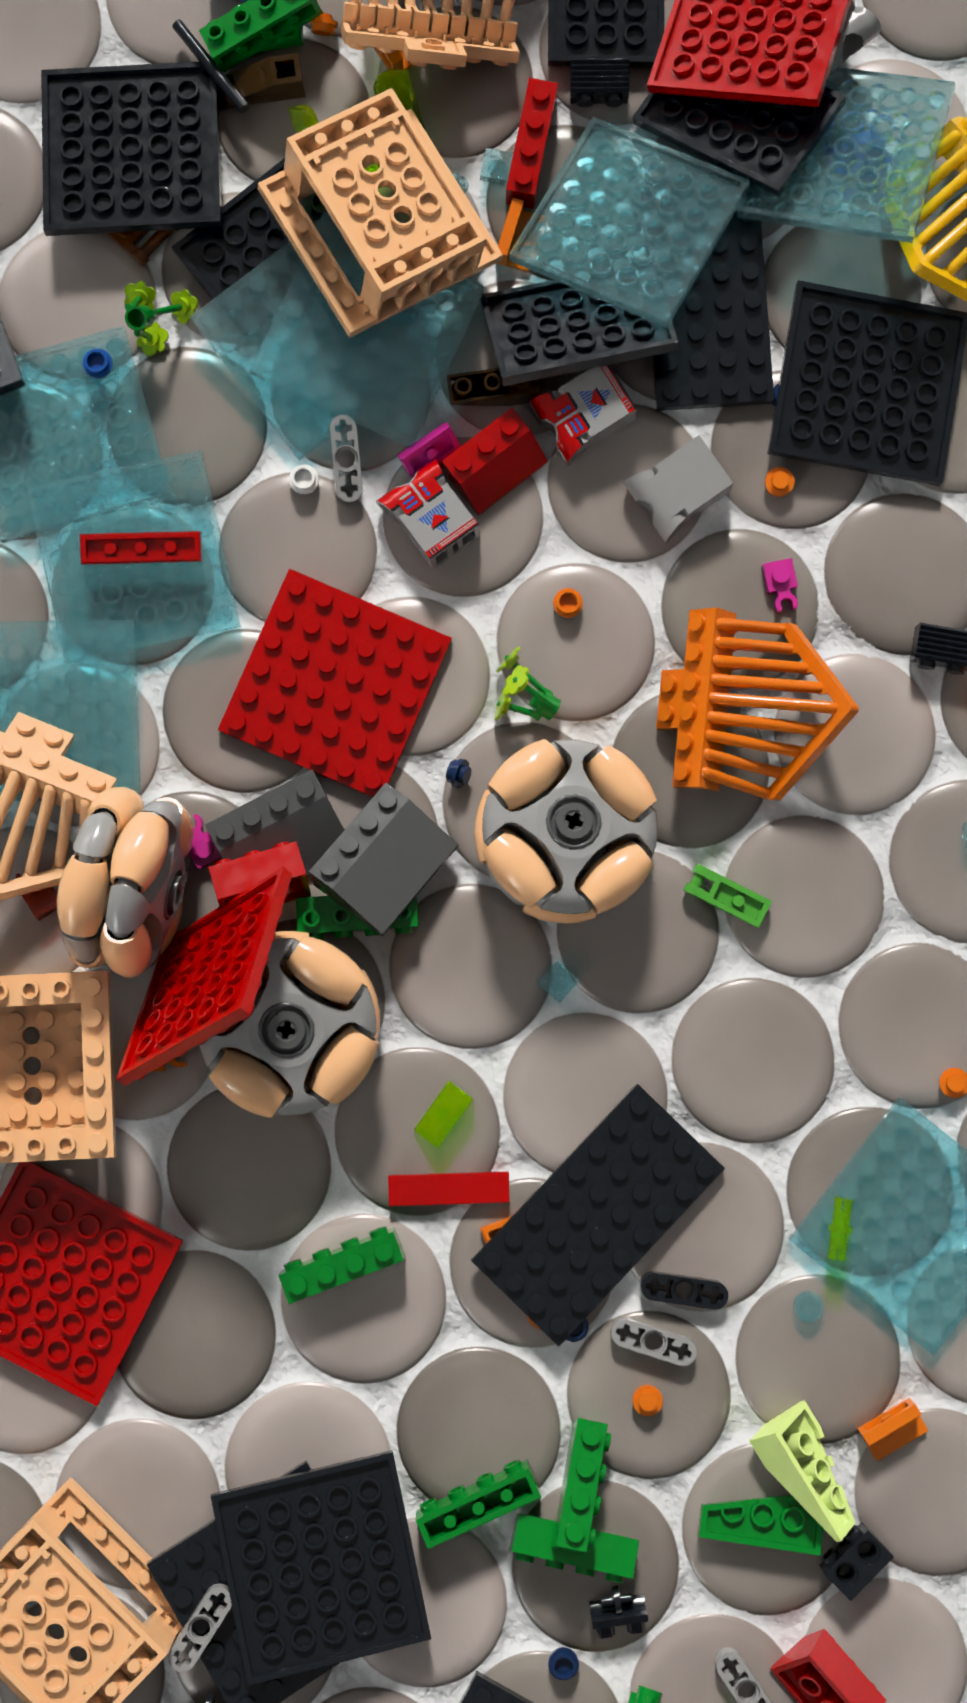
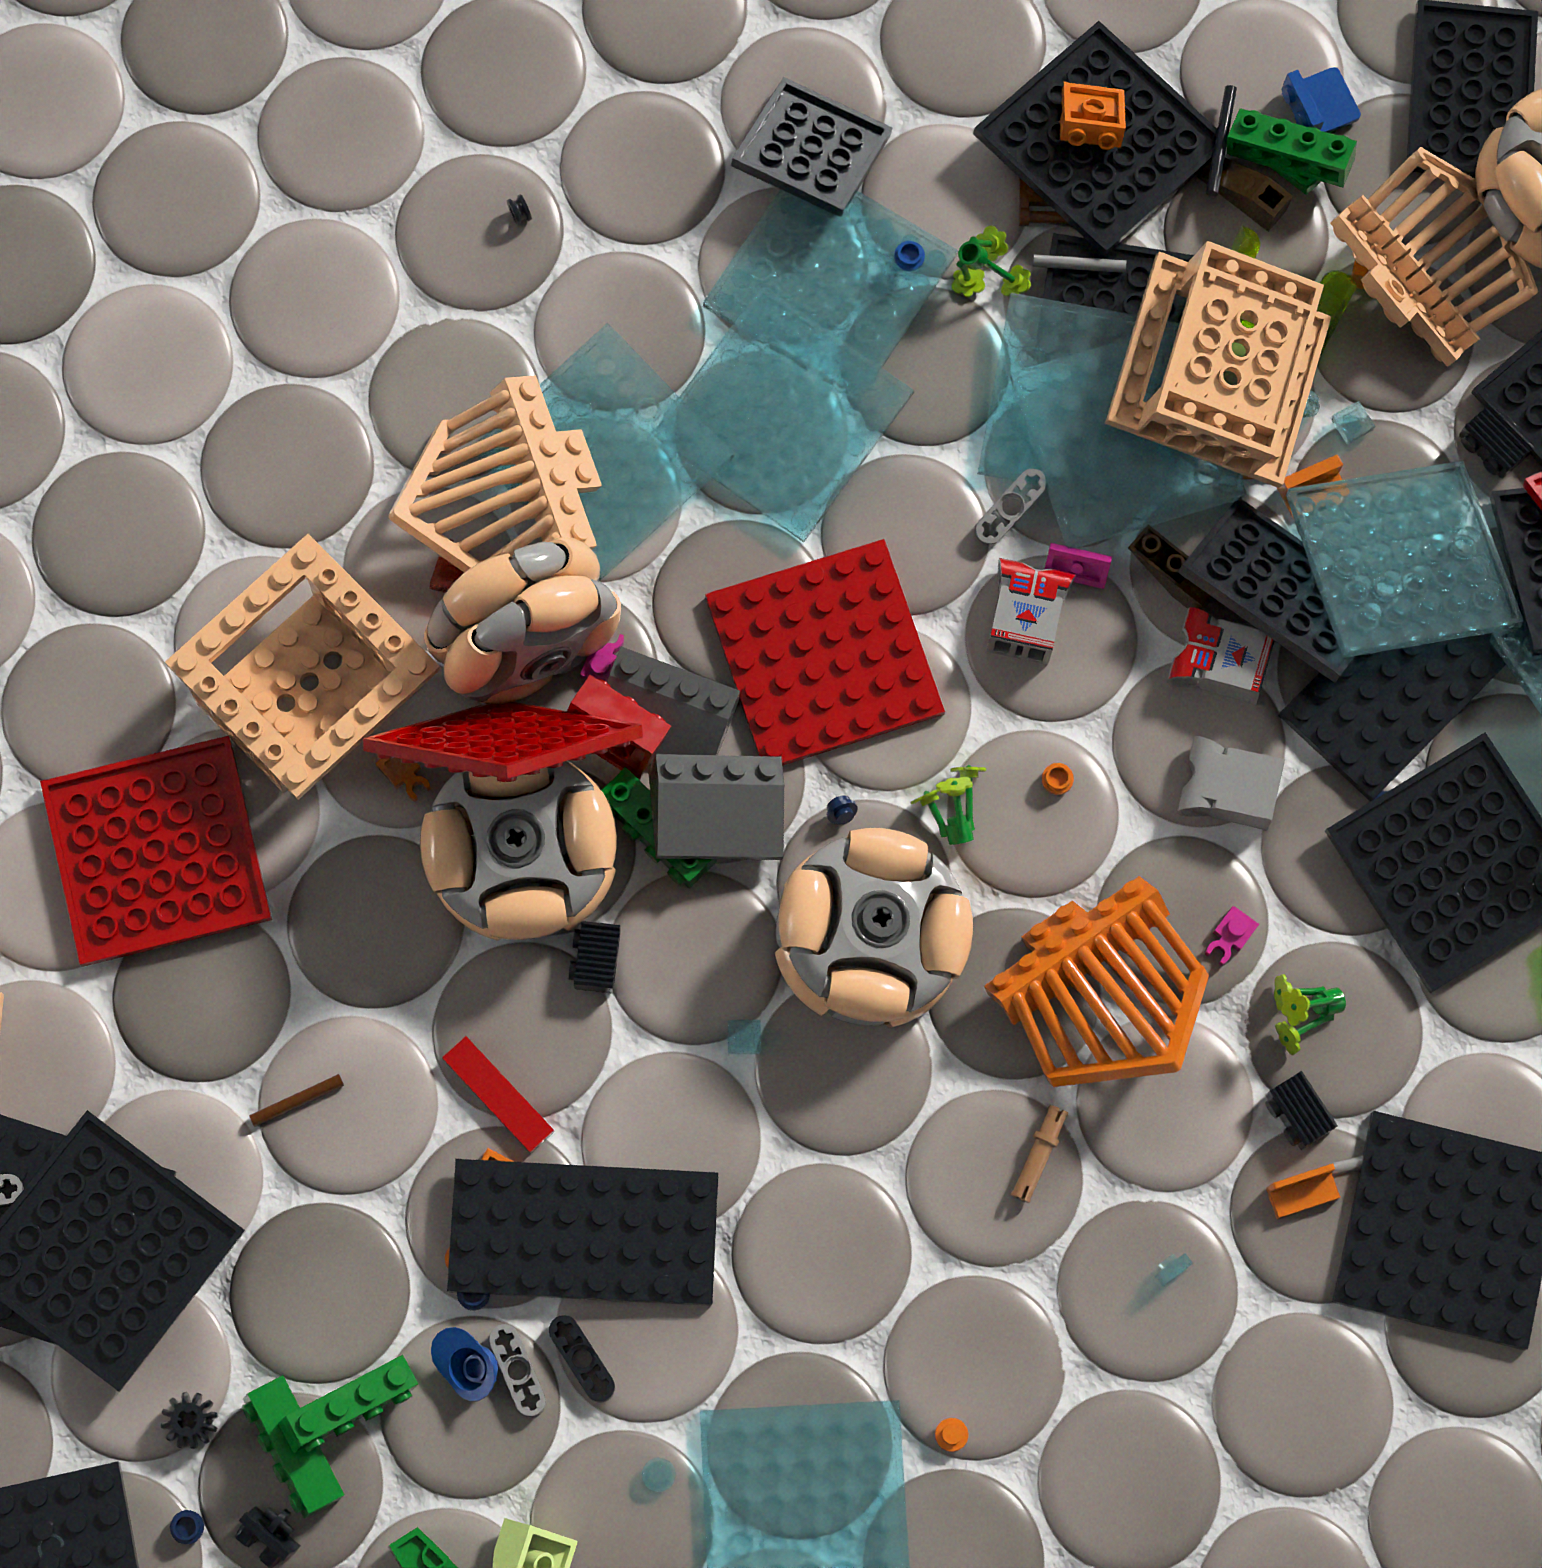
camera: 45 degrees right, 10 degrees down
(111, 138) = (1092, 115): none -> orange plate
(141, 548) = (795, 411): red tile -> none
(211, 249) = (1079, 263): none -> light grey bar
(304, 479) = (965, 489): white plate -> none
(323, 25) = (1336, 196): orange plate -> none
(329, 1333) = (296, 1100): none -> reddish brown bar
(341, 1265) = (362, 1060): green brick -> none
(412, 1036) = (595, 957): none -> black brick
(443, 1114) = (555, 1038): clear neon green slope -> none
(478, 1503) = (260, 1336): green brick -> none
(494, 461) = (1116, 622): red slope -> none
(503, 1604) = (187, 1433): none -> black gear
(531, 141) = (1411, 421): red arch -> none
(620, 1377) = (464, 1363): none -> blue piece
(647, 1400) = (464, 1411): orange plate -> none
(728, 896) = (937, 1113): bright green plate -> none
(779, 481) = (1312, 861): orange plate -> none
(818, 854) = (1044, 1142): none -> medium nougat pin
(840, 1228) = (746, 1438): clear neon green pin -> none
(880, 586) = (1295, 1004): none -> plant

